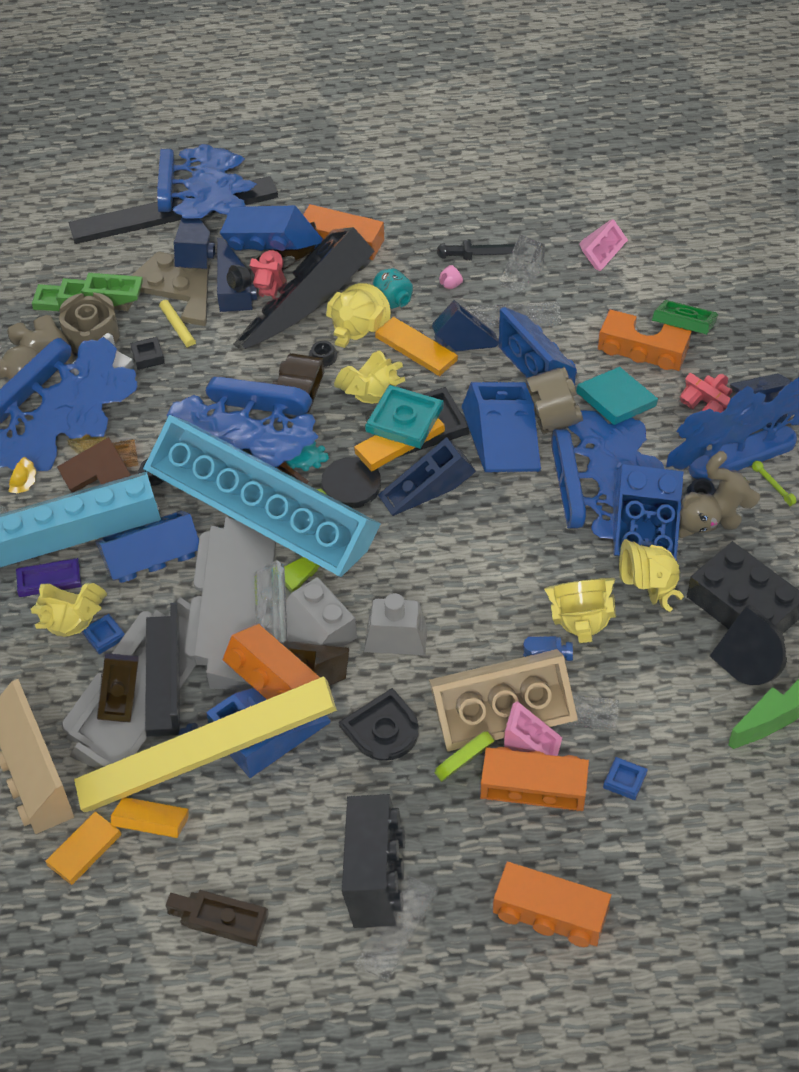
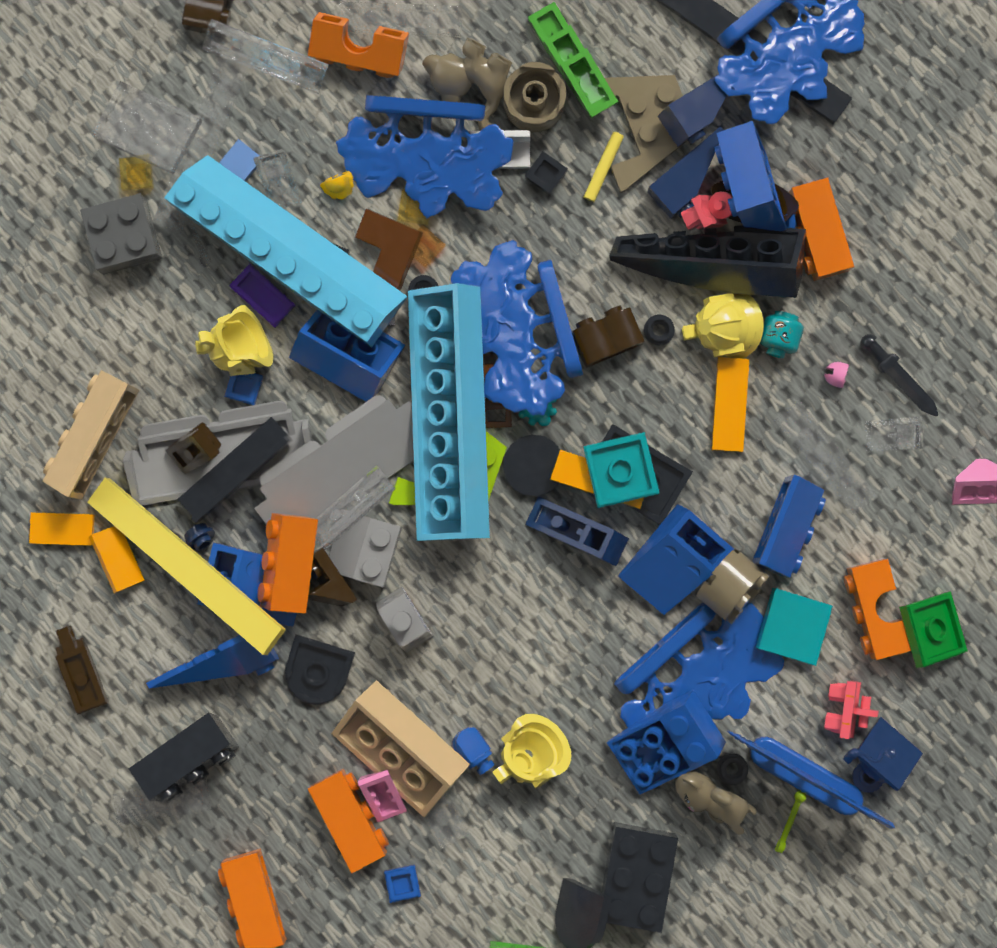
camera: 55 degrees right, 35 degrees up
(238, 278) = (673, 197): black plate -> none
(321, 767) = (228, 660): none -> blue wedge
(371, 380) = (660, 392): light yellow helmet -> none
(462, 330) = (771, 440): dark blue slope -> none
(464, 756) = (328, 755): lime tile -> none
(650, 569) = (602, 791): light yellow helmet -> none

